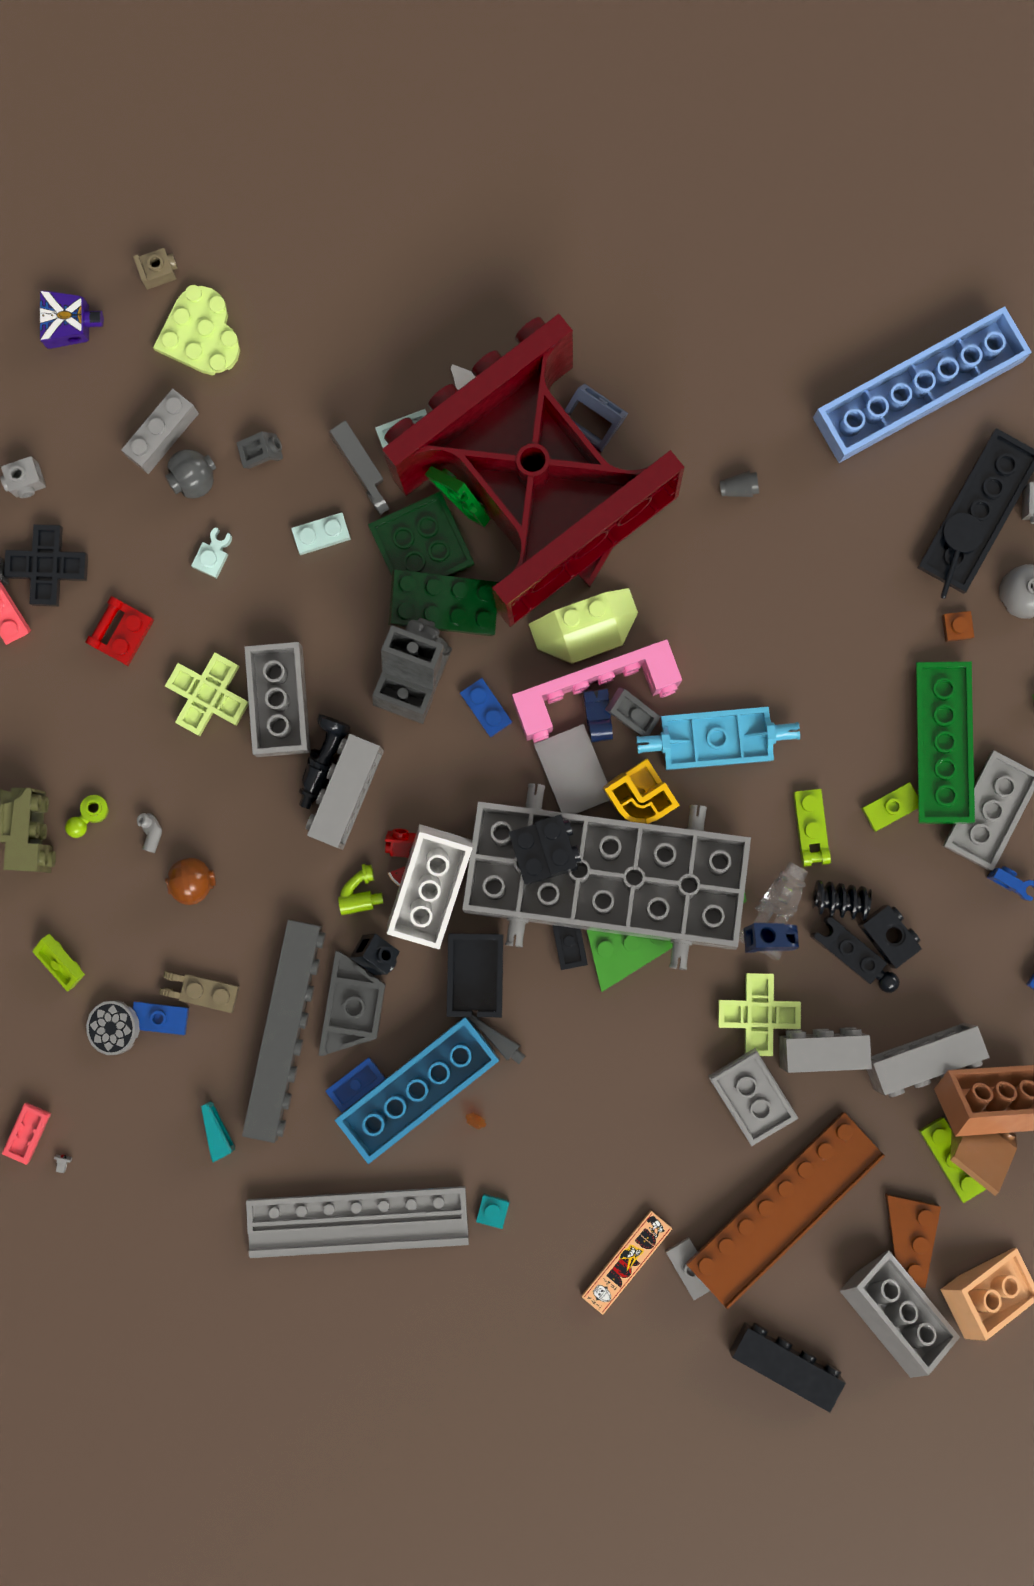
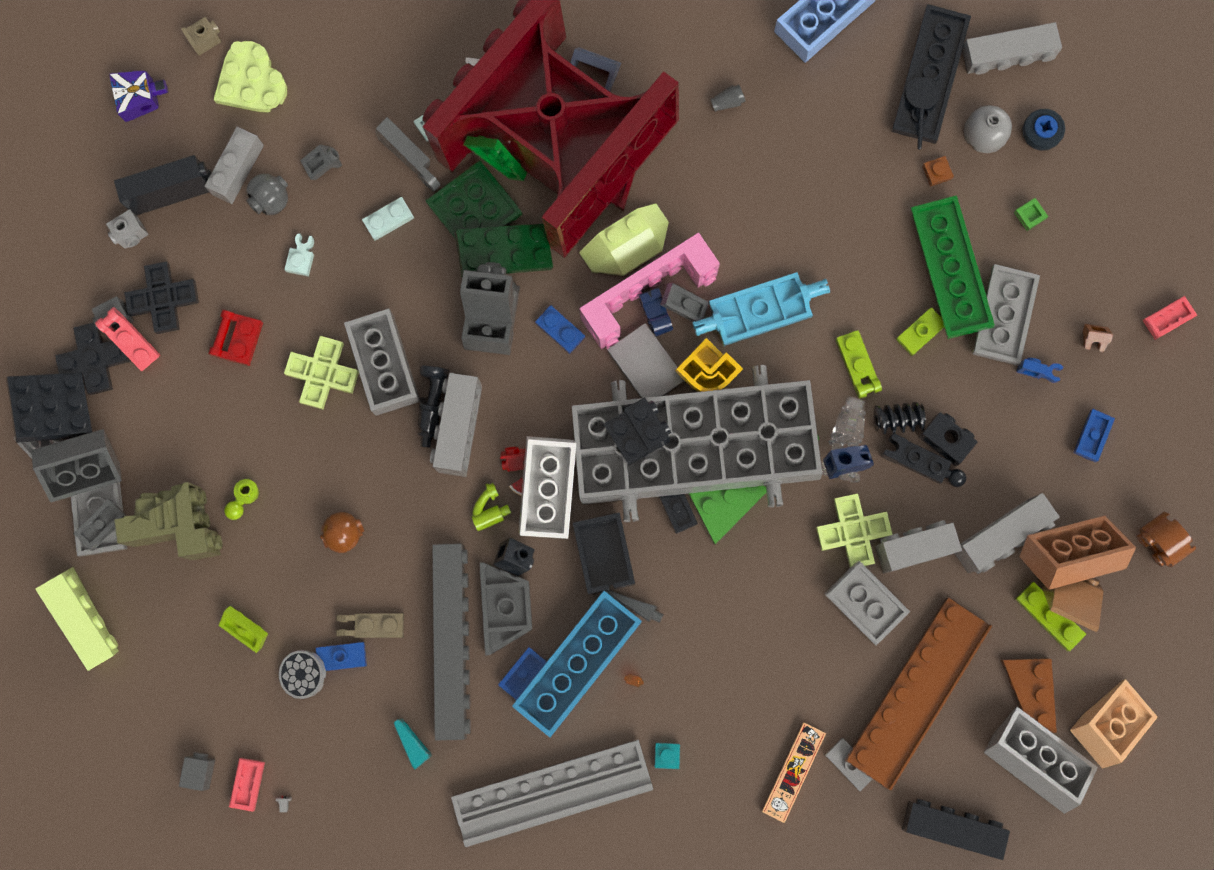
camera: 10 degrees left, 5 degrees down
(74, 437) = (163, 185): none -> black brick
(152, 830) = (300, 497): light grey arm -> none

